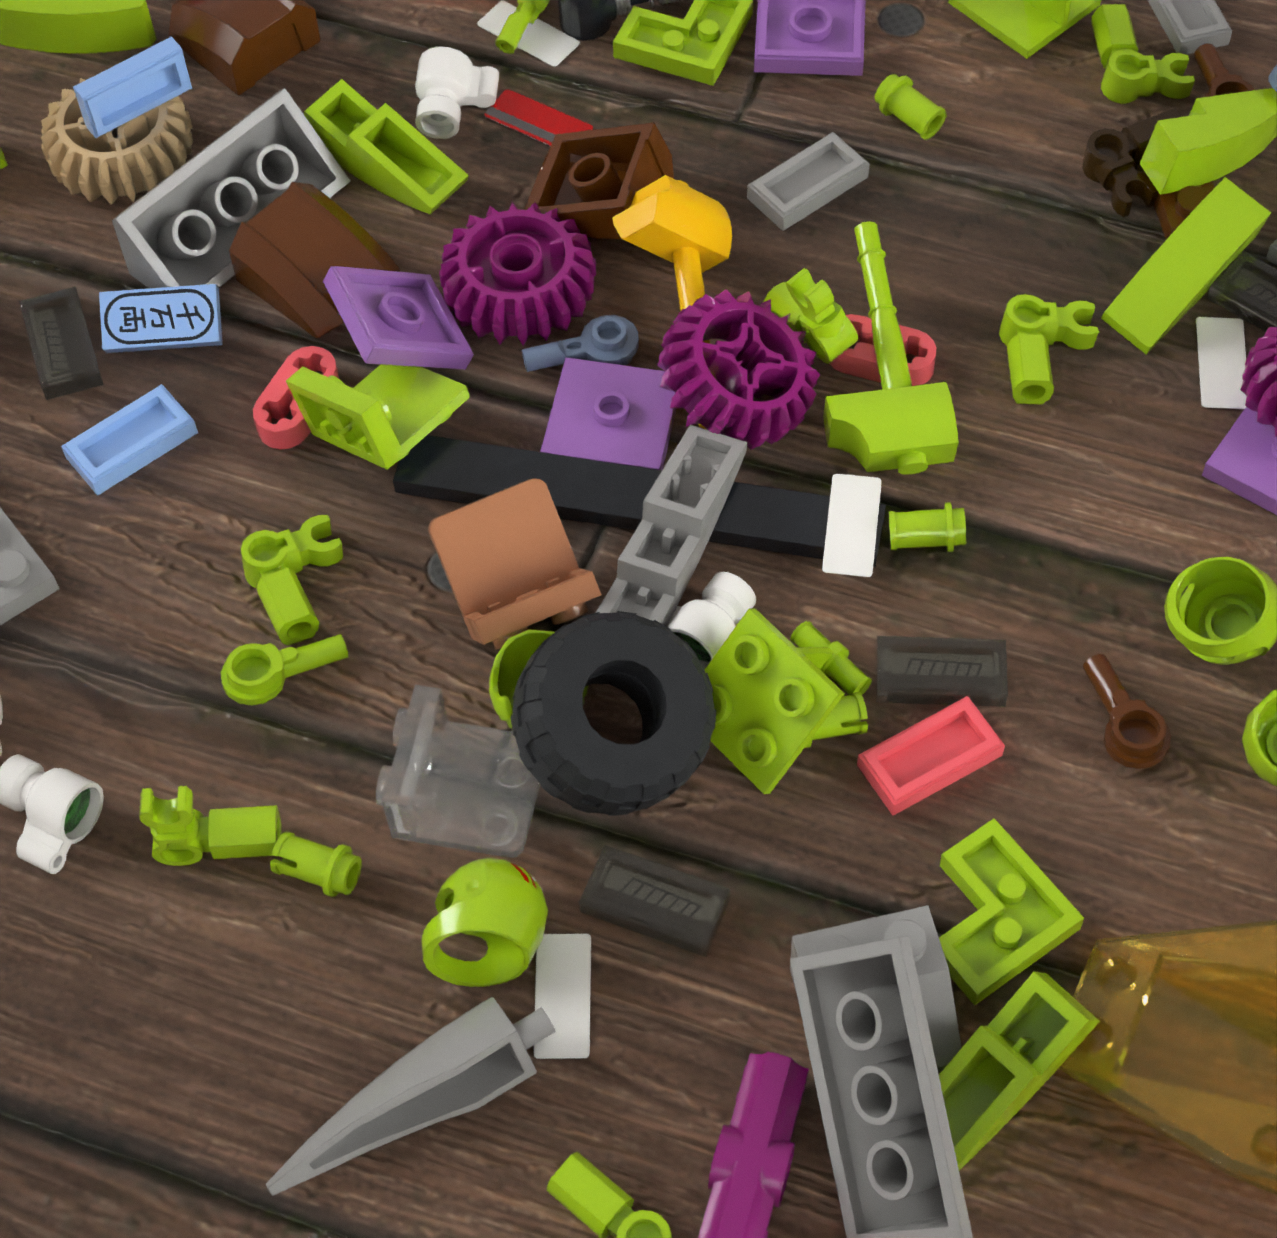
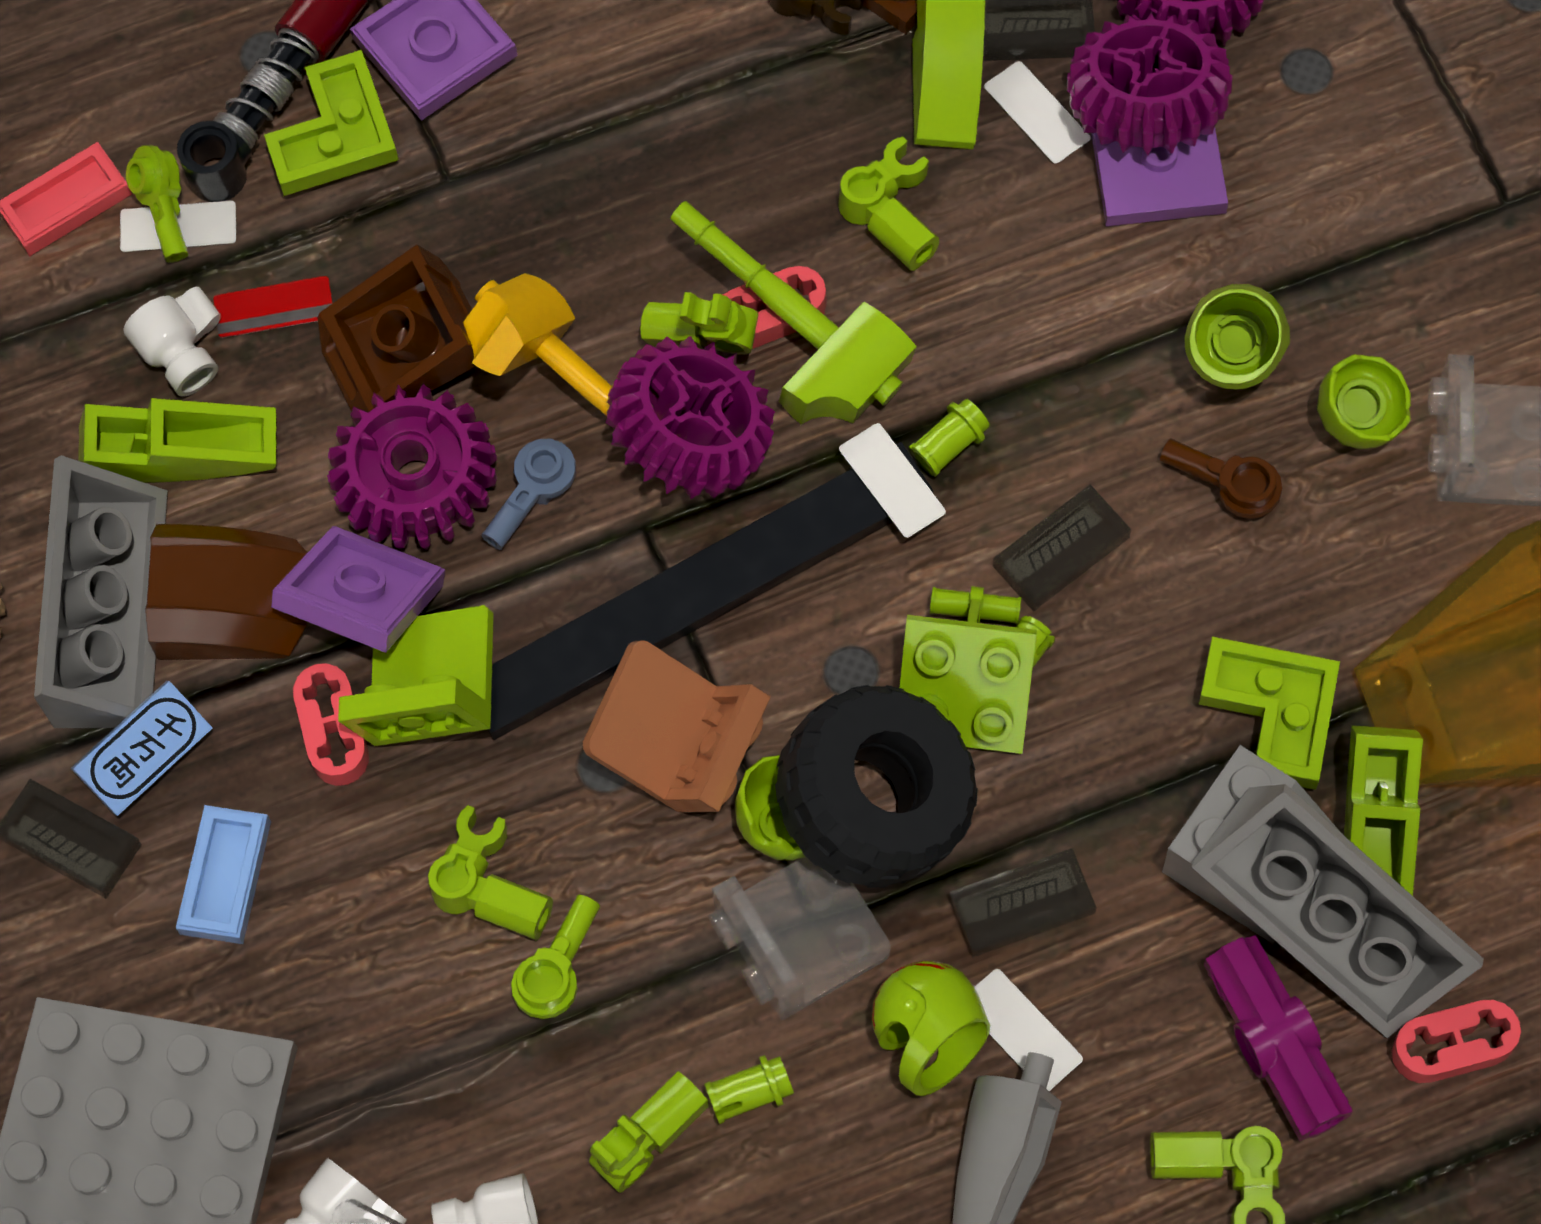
camera: 40 degrees left, 10 degrees up
(610, 414) = (609, 534): medium lavender plate -> none
(675, 525) = (768, 600): light grey slope -> none
(710, 621) = (858, 657): white piece -> none
(808, 181) = (565, 193): light grey tile -> none
(914, 109) = (588, 58): lime pin -> none
(930, 755) = (1114, 622): coral tile -> none

